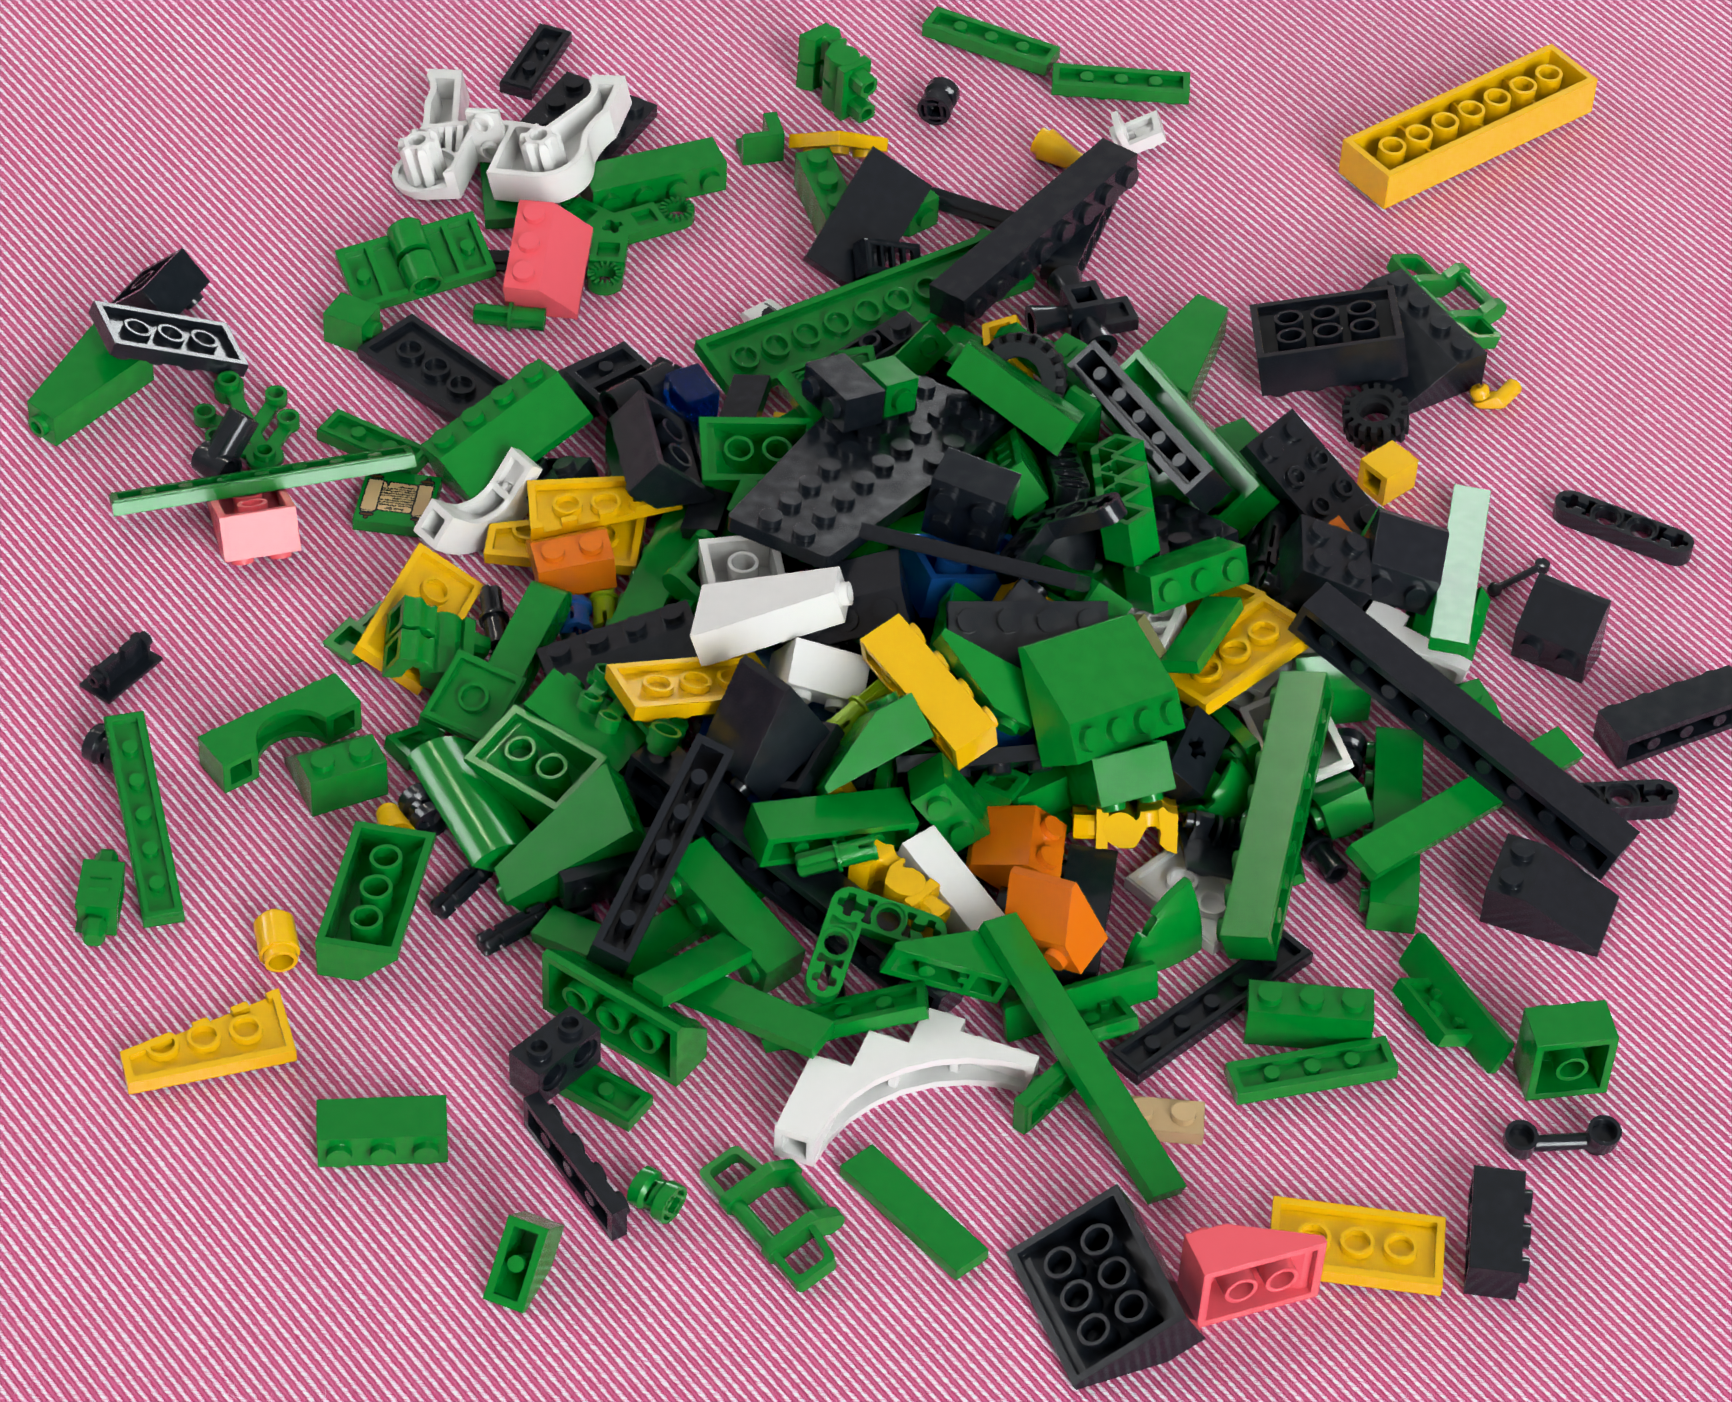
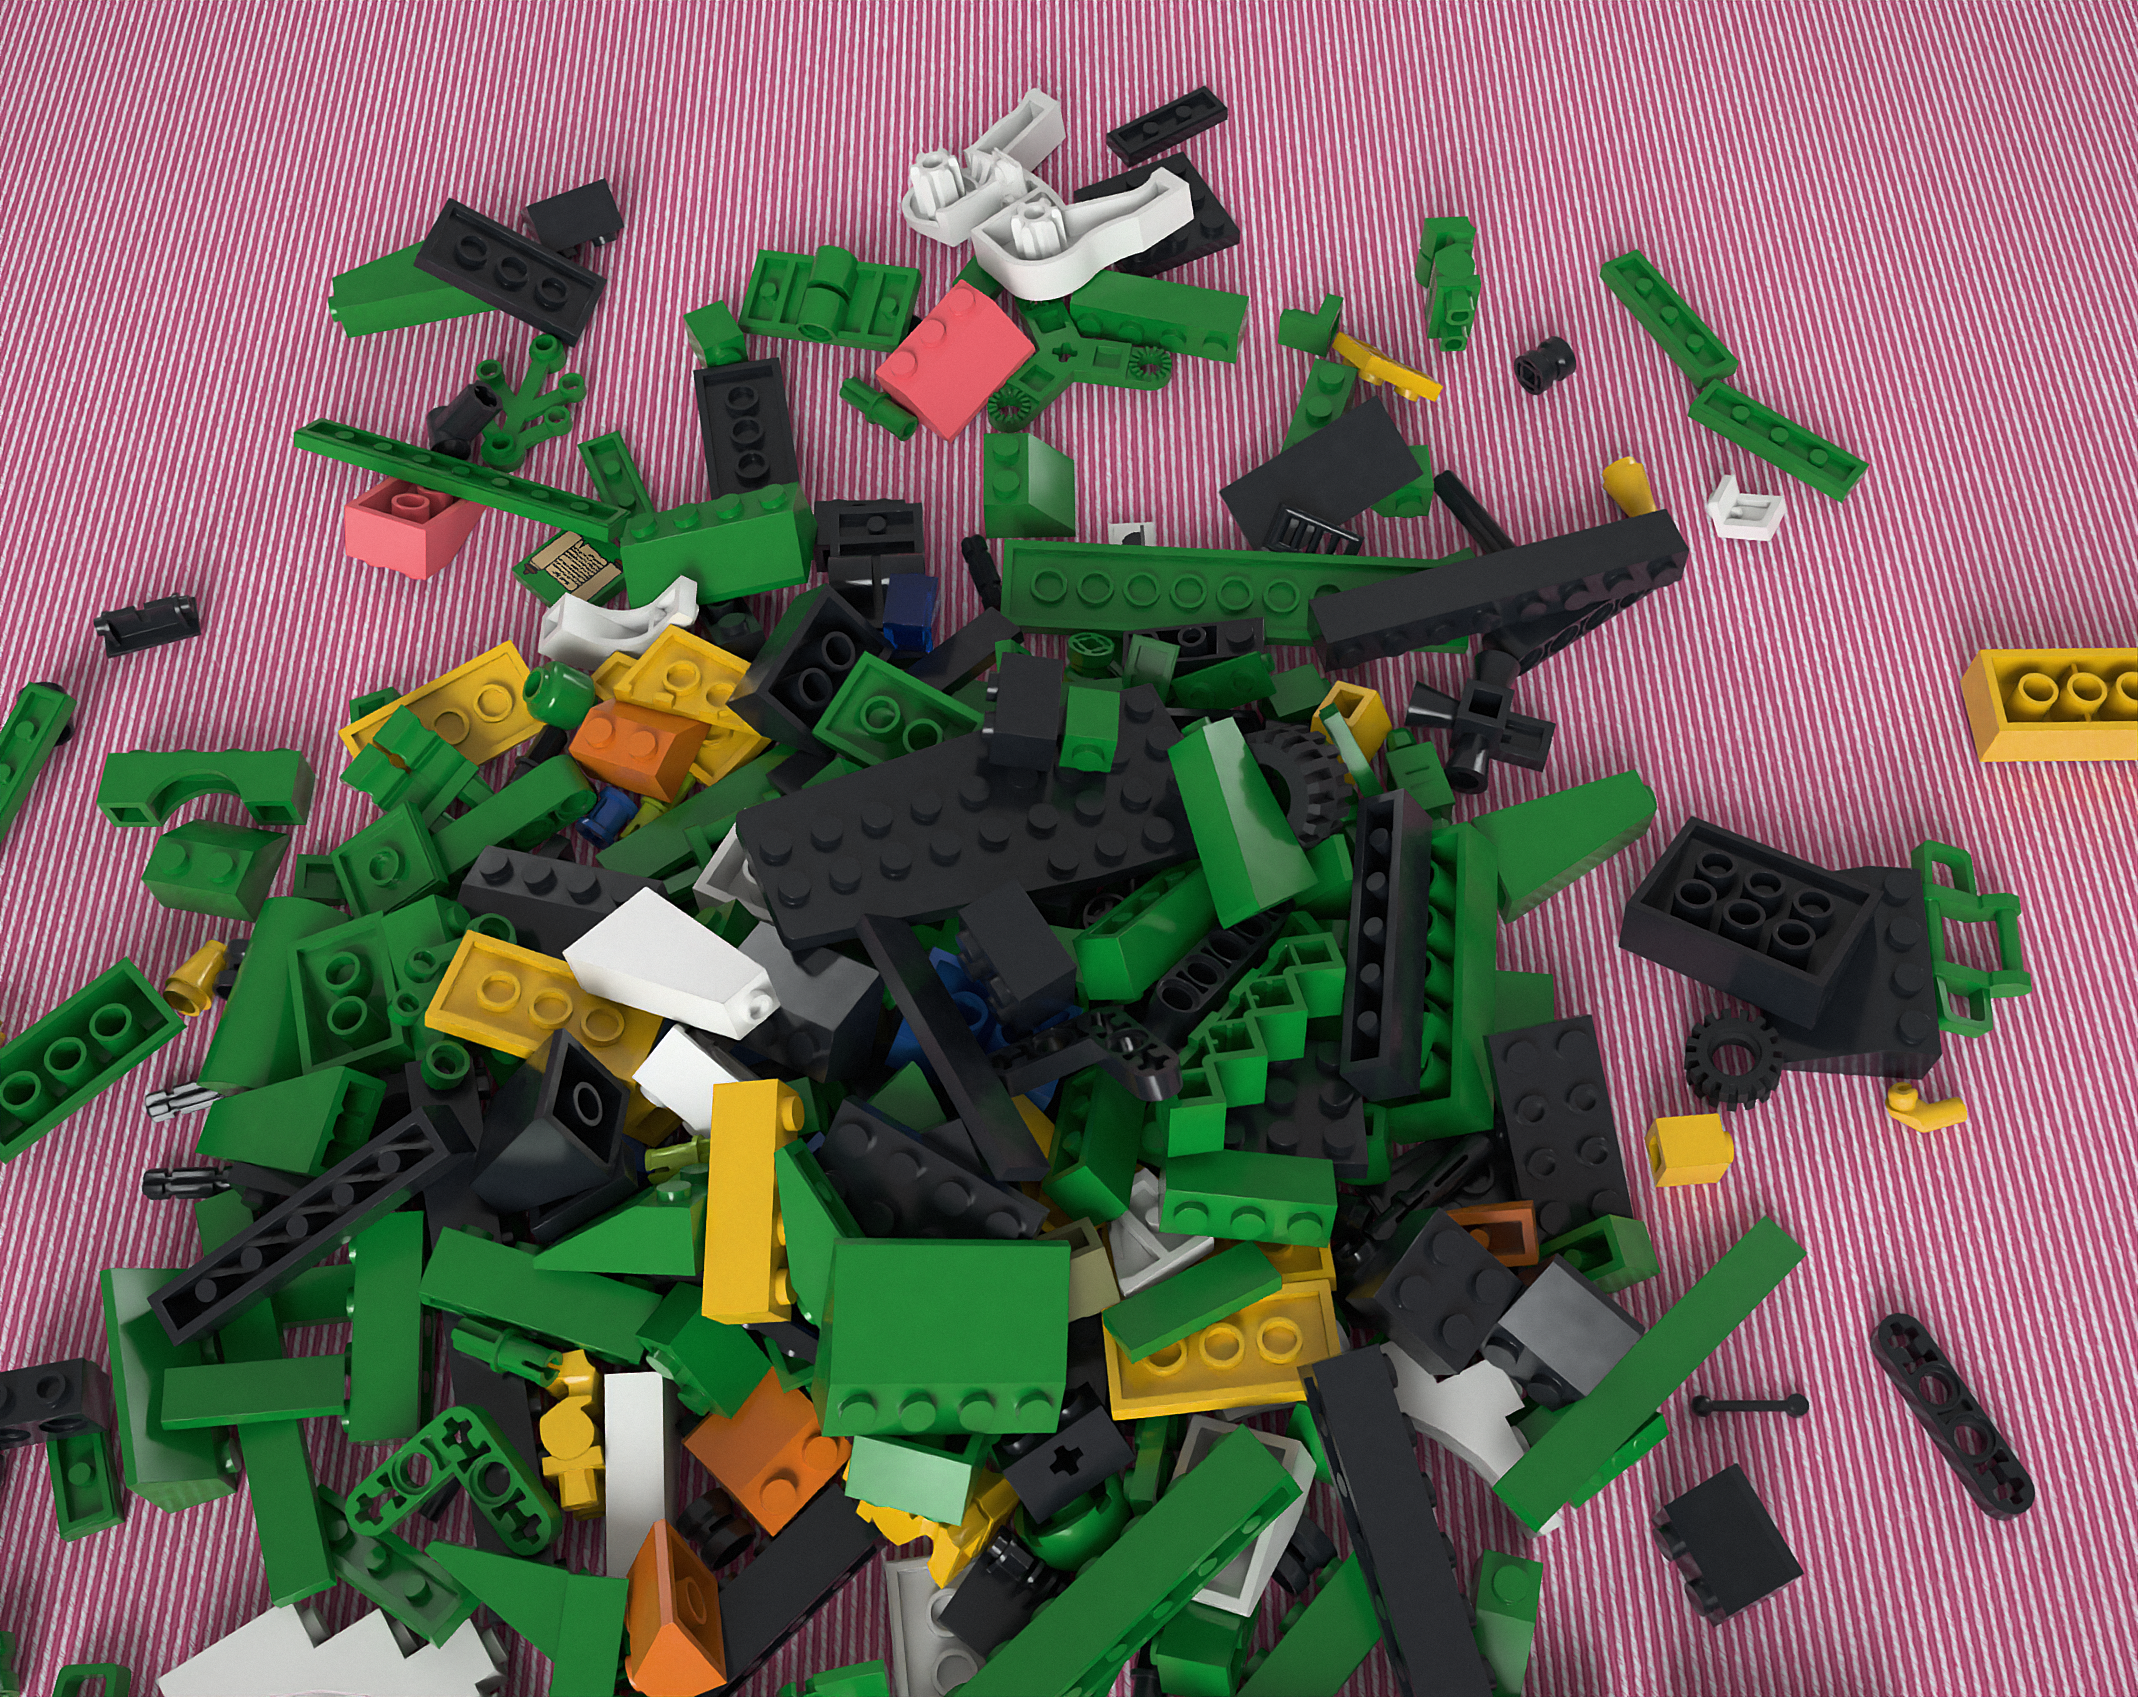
camera: 40 degrees right, 15 degrees up
(483, 560) = (559, 695): none -> green head
(660, 318) = (1027, 488): none -> green slope

